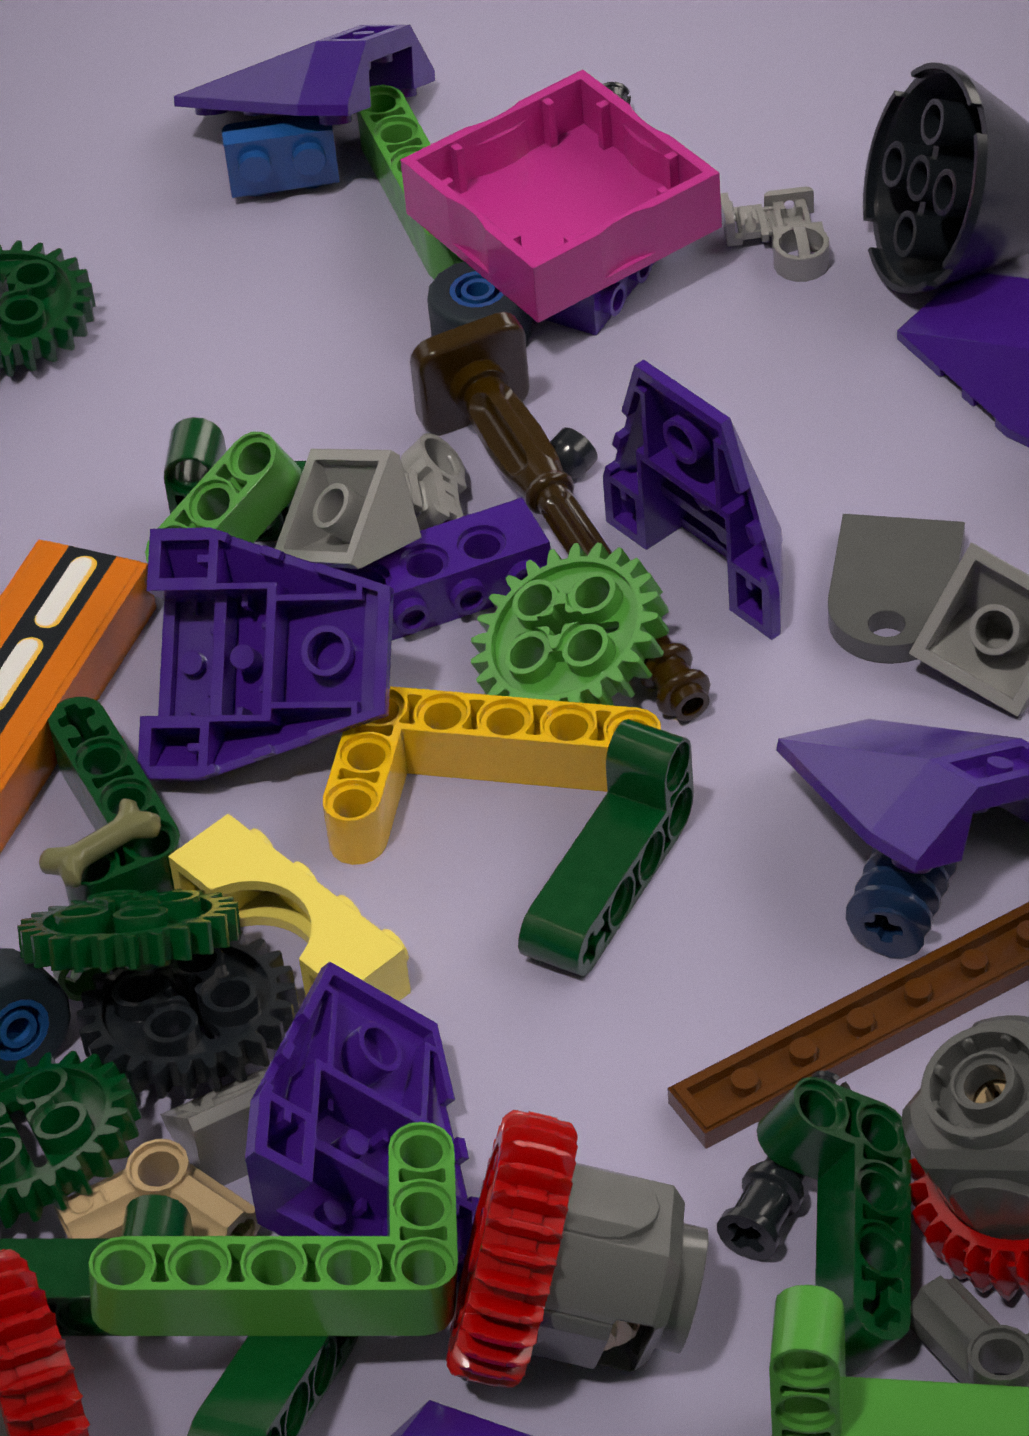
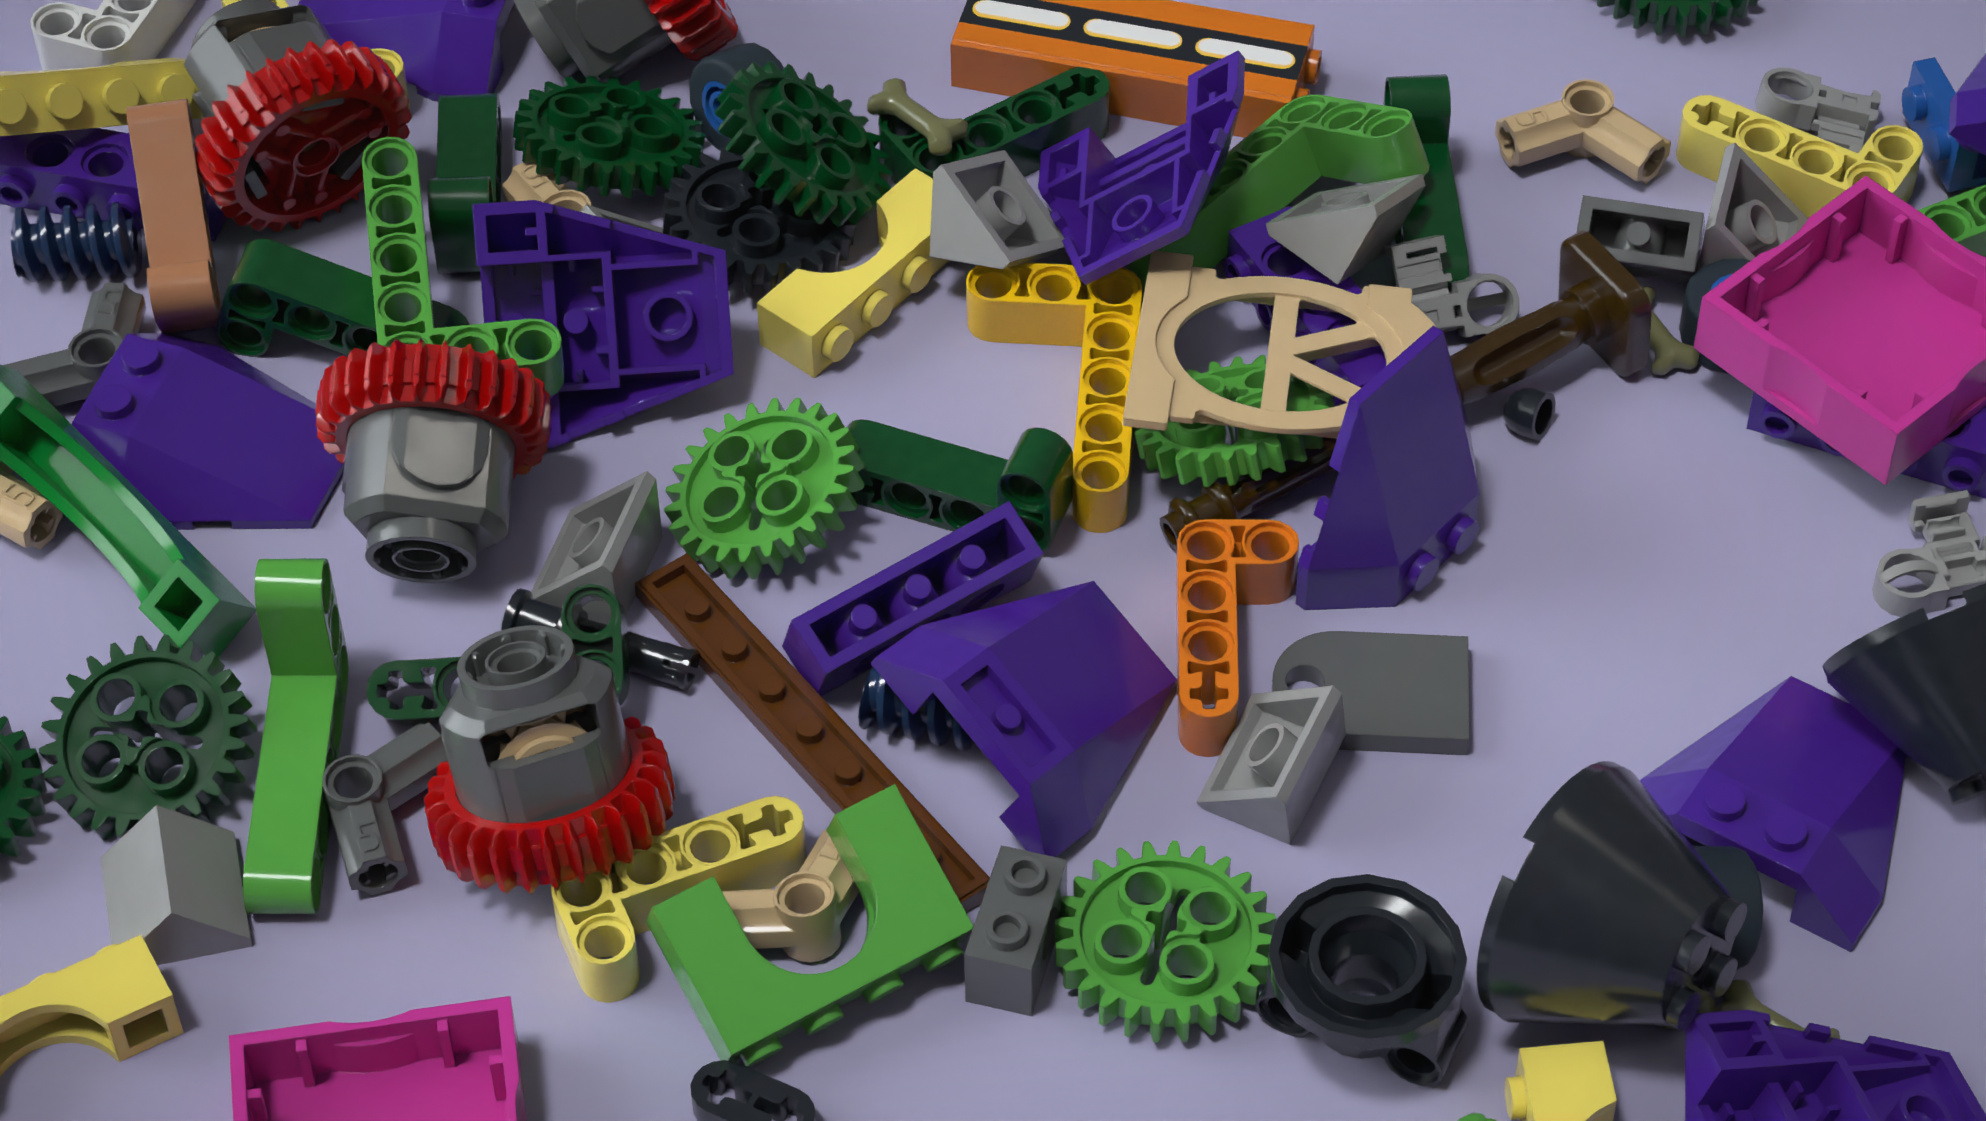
camera: 80 degrees right, 5 degrees up
(209, 375) = (1584, 127): none -> tan piece
(214, 248) = (1836, 114): none -> light grey piece
(276, 795) = (989, 214): none -> light grey slope
(326, 236) = (1799, 163): none -> light yellow beam
(368, 302) = (1746, 212): none -> light grey slope
(382, 350) = (1646, 237): none -> dark grey brick
(587, 637) = (1178, 291): none -> tan window
(587, 1059) = (764, 488): none -> bright green gear
(677, 1138) = (605, 545): none -> light grey slope
(779, 885) = (933, 584): none -> dark purple brick
(820, 680) = (1215, 570): none -> orange beam

